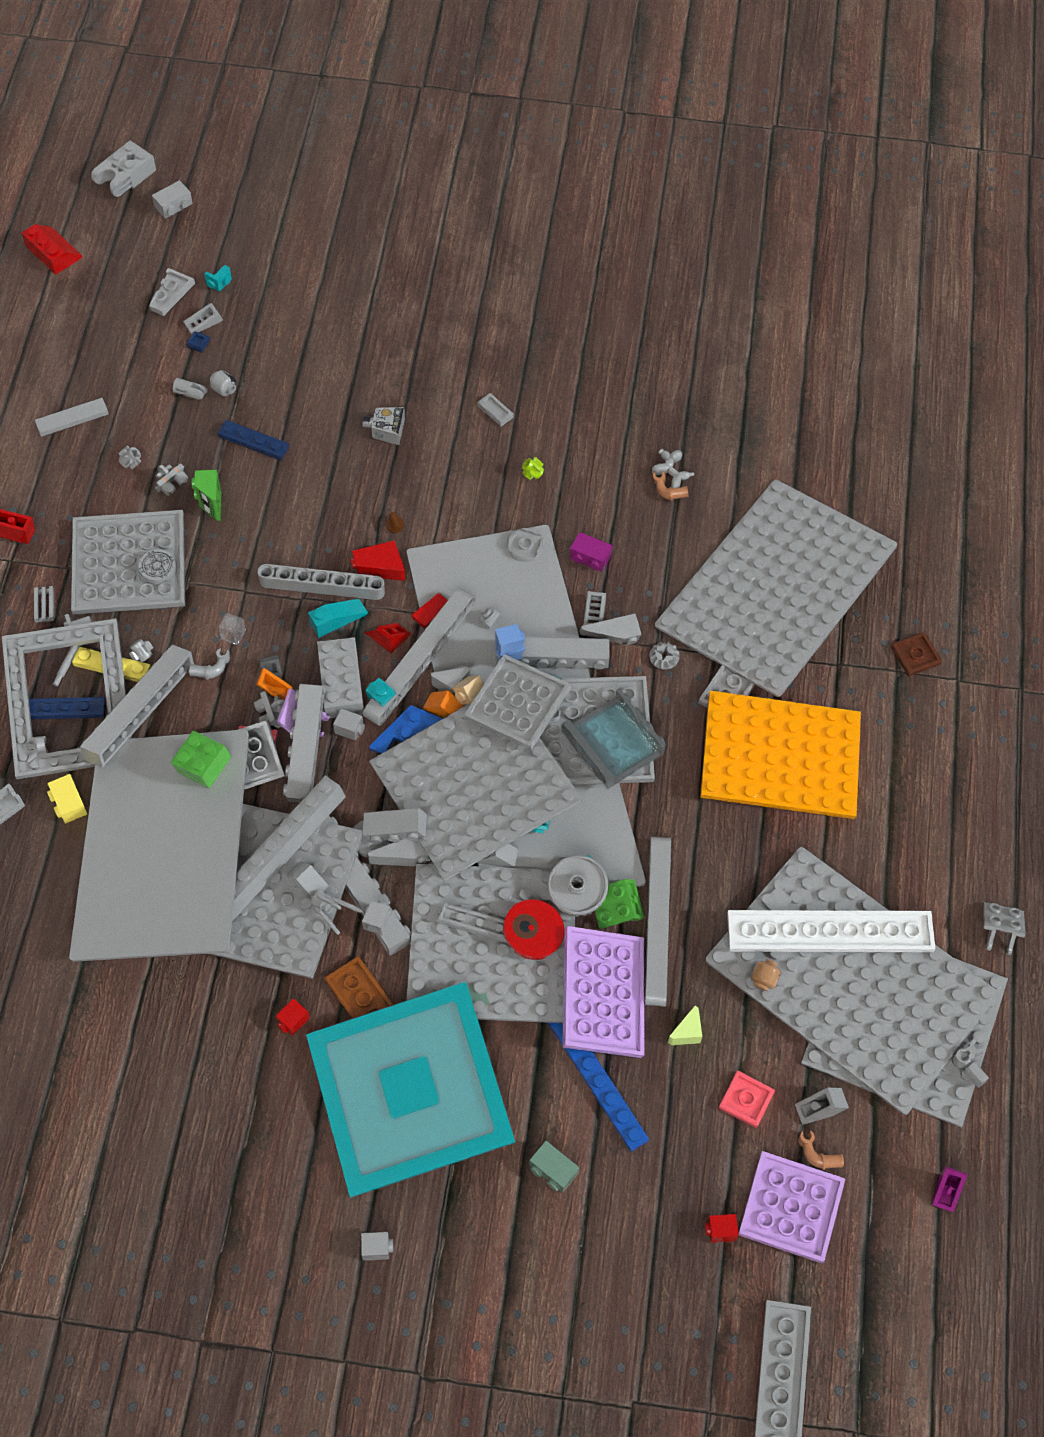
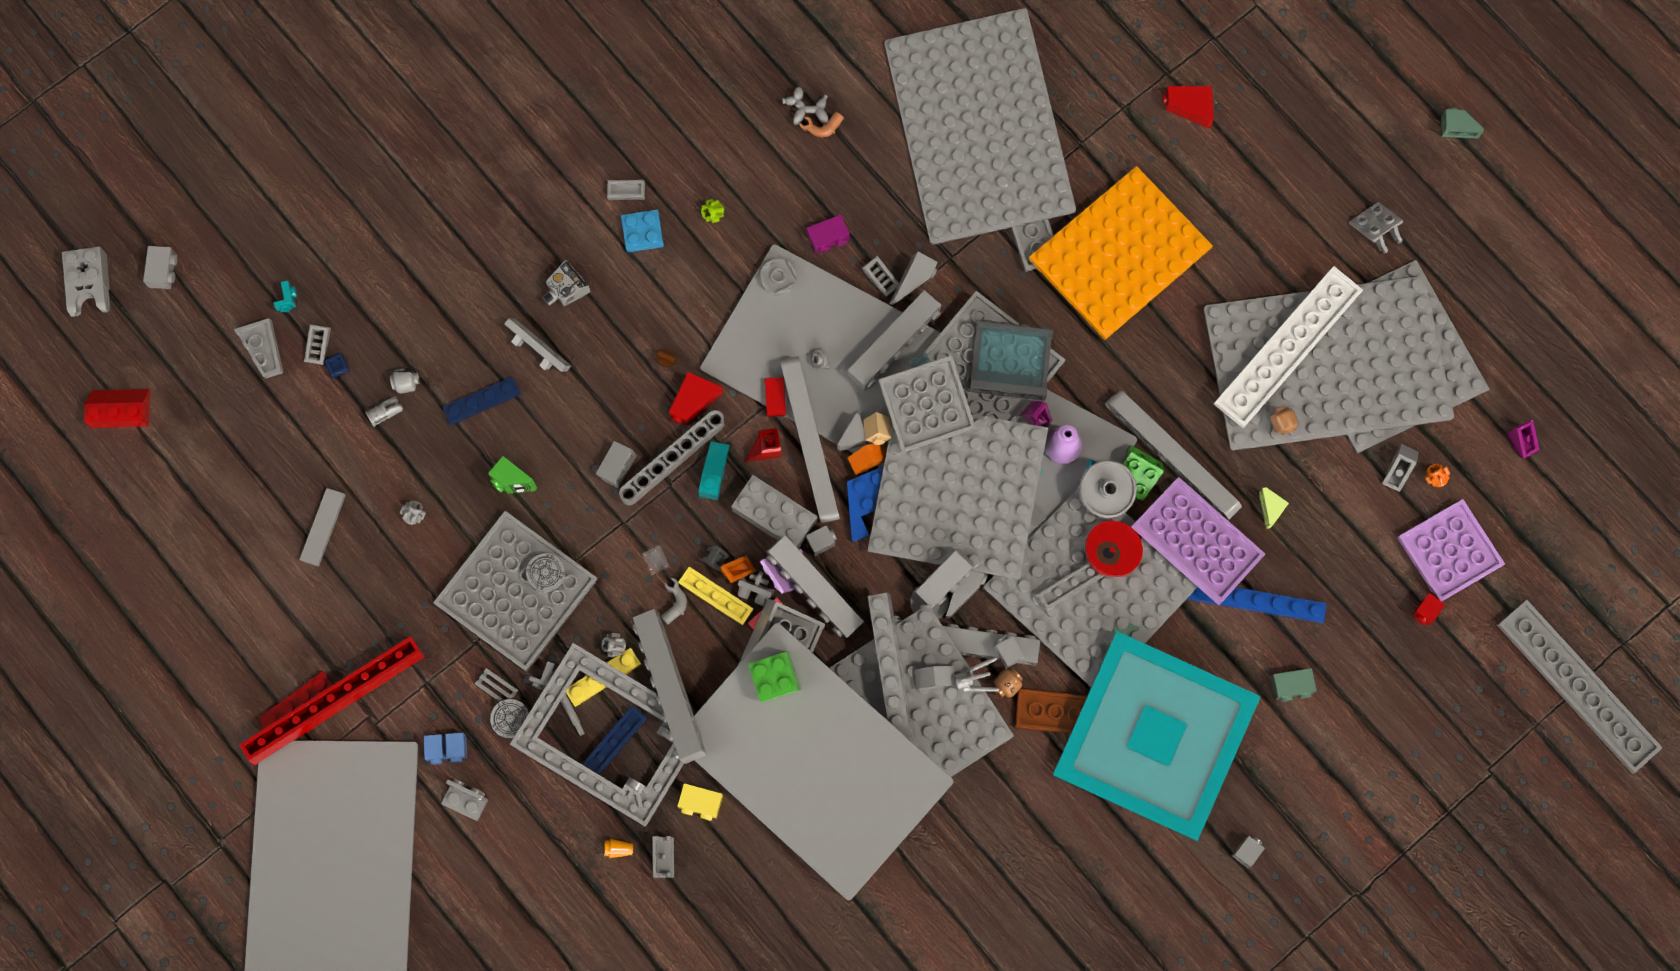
camera: 50 degrees left, 15 degrees up
(25, 621) = (508, 717): none -> light grey tile
(164, 483) = (463, 488): light grey hips -> none
(240, 689) = (715, 596): none -> light yellow plate
(283, 551) = (616, 464): none -> light grey hinge
(292, 1017) = (1029, 774): red brick -> none
(325, 429) = (524, 334): none -> light grey hinge
(354, 942) = (1008, 683): none -> medium nougat head
(380, 692) = (818, 495): teal bracket -> none
(475, 441) = (642, 231): none -> dark azure plate
(509, 642) = (872, 368): medium blue piece -> none
(586, 829) = (1063, 444): none -> lavender cone
(590, 794) = (1037, 414): none -> magenta slope
(670, 660) = (963, 268): light grey gear -> none
(746, 1099) = (1352, 512): coral tile -> none
(819, 1160) = (1430, 506): nougat piece -> none
(844, 1140) = (1437, 475): none -> orange gear
(916, 654) = (1122, 82): copper tile -> none
(951, 711) = (1191, 103): none -> red slope
(963, 1059) = (1449, 343): light grey bar -> none

